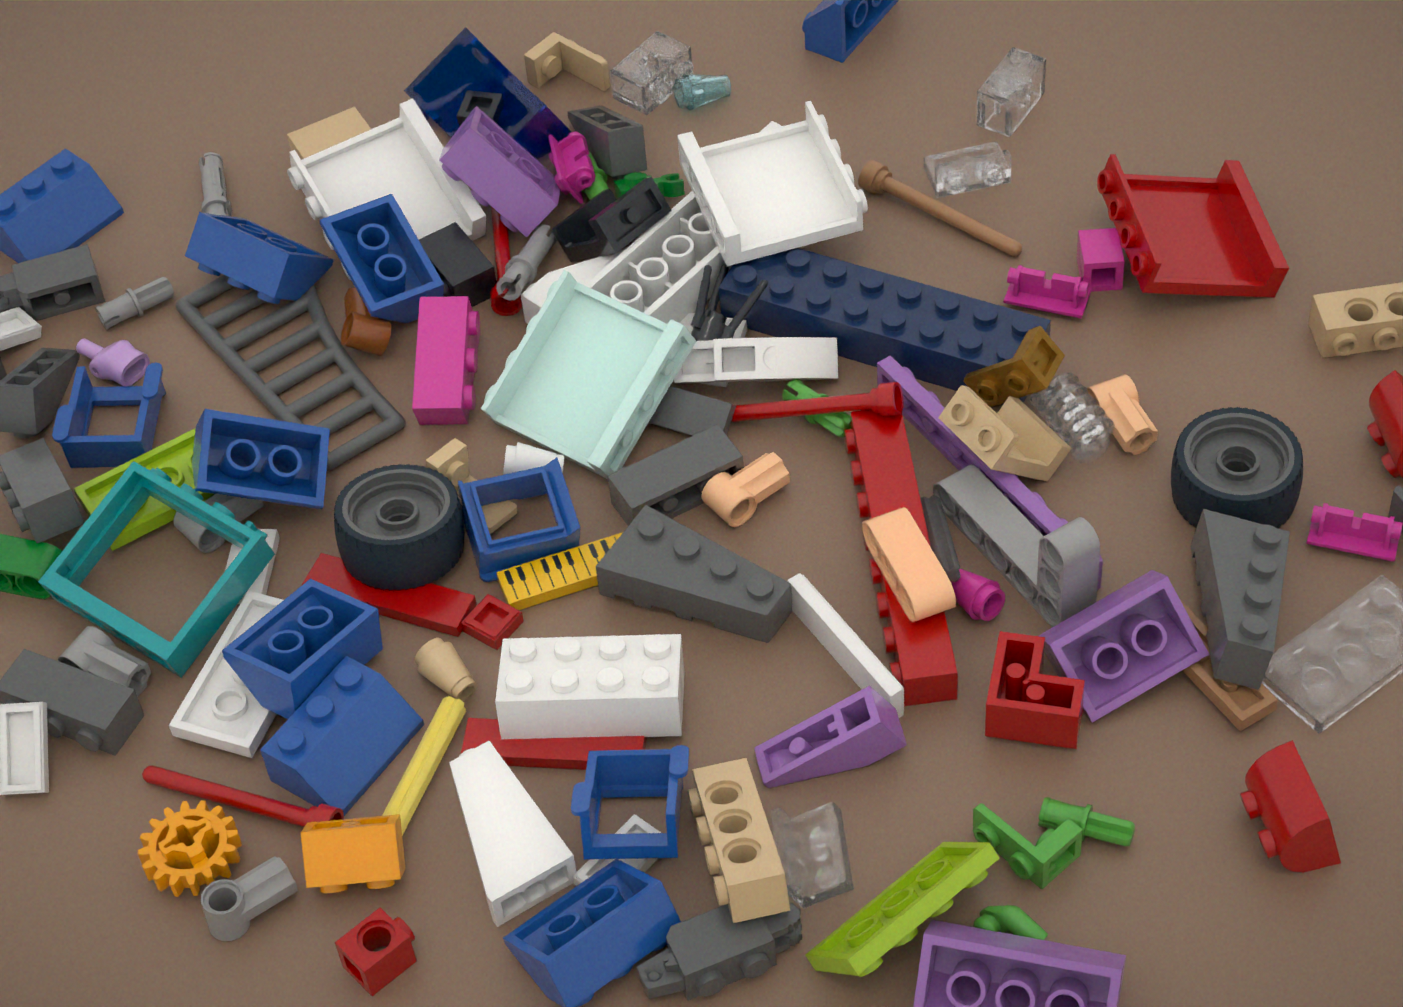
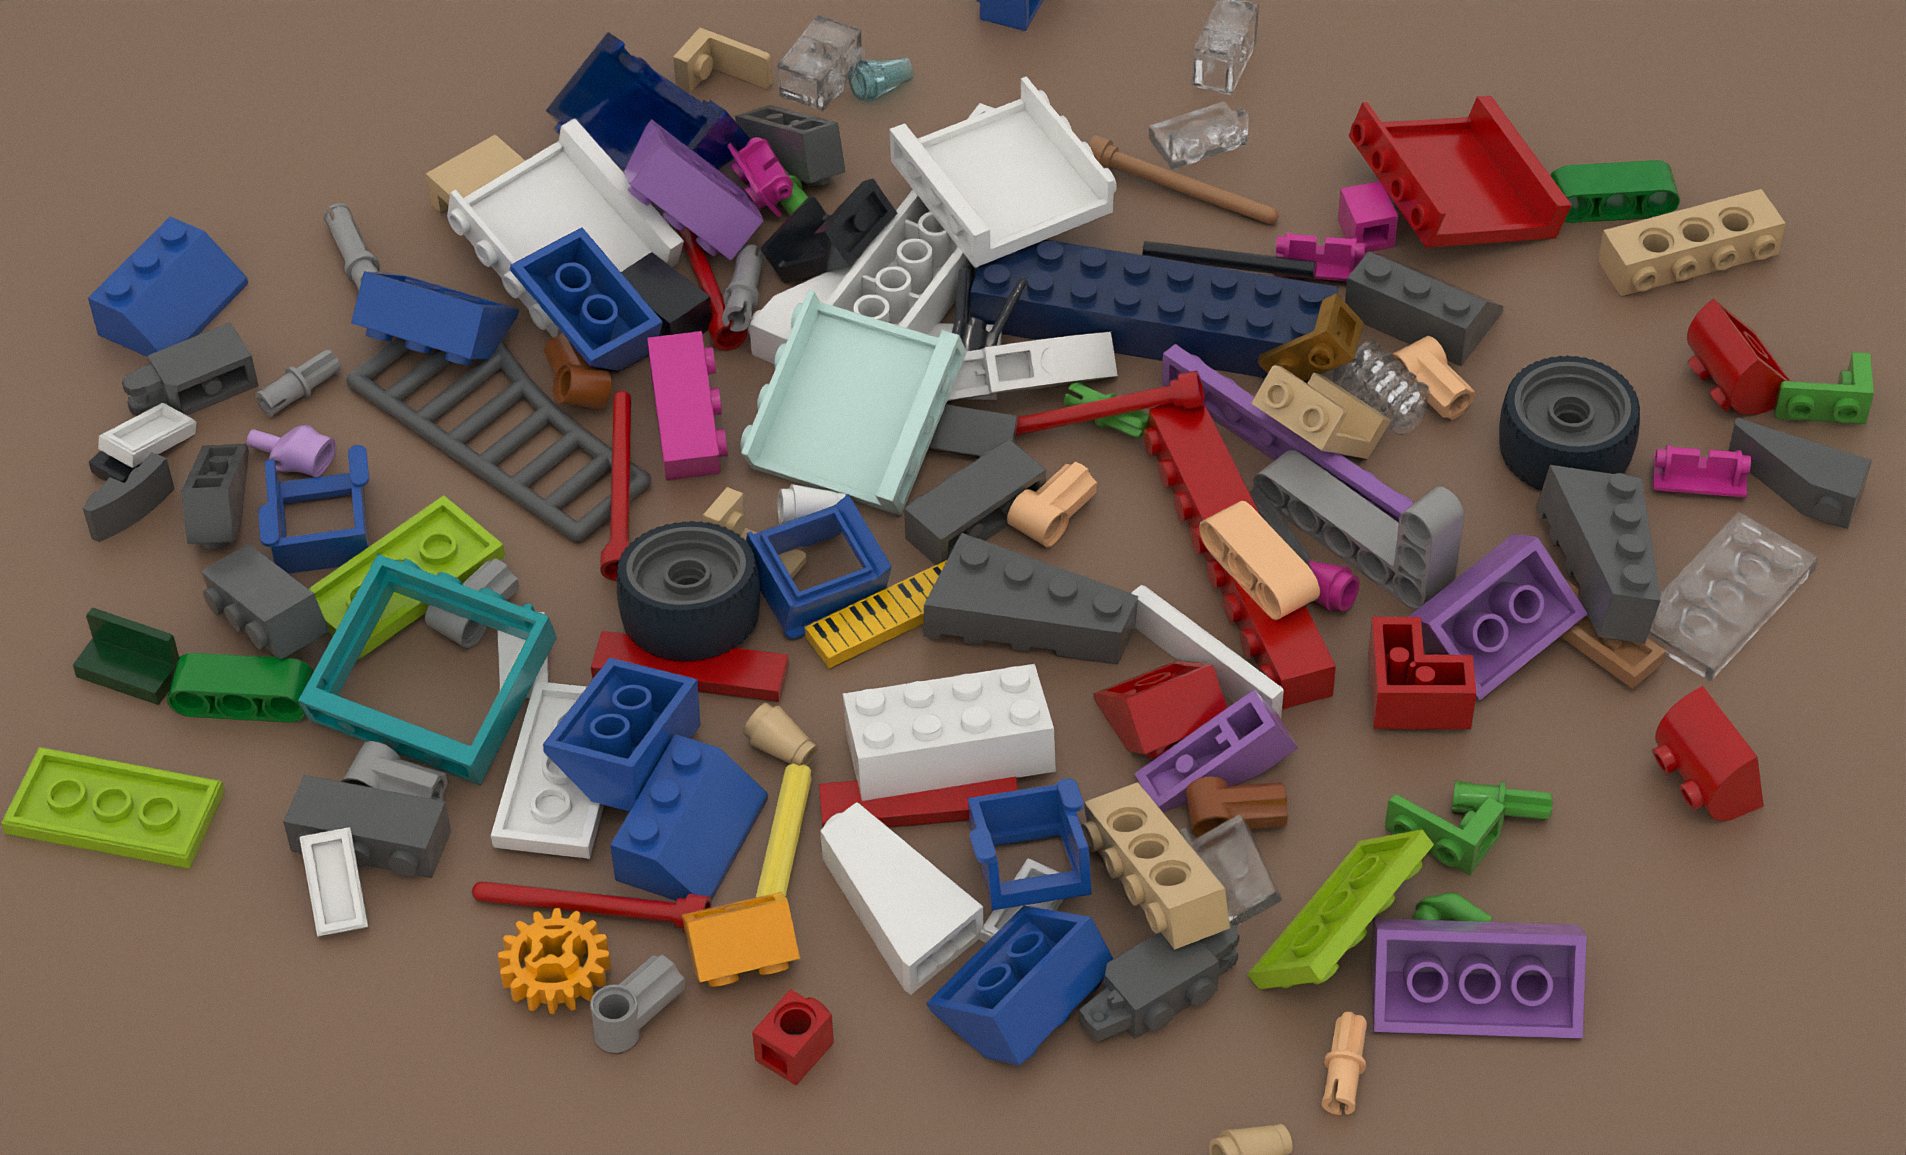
camera: 15 degrees left, 0 degrees up
(260, 459) = (514, 535): blue slope -> none
(375, 414) = (619, 486): none -> red piece
(489, 103) = (633, 119): black plate -> none
(492, 621) = (813, 680): red tile -> none
(668, 184) = (840, 187): green plate -> none
(792, 688) = (1162, 705): none -> red slope
(817, 785) = (1215, 802): none -> dark orange piece
(966, 284) = (1232, 259): none -> black bar
(1127, 343) = (1418, 305): none -> dark grey slope
(1338, 259) = (1617, 190): none -> green beam

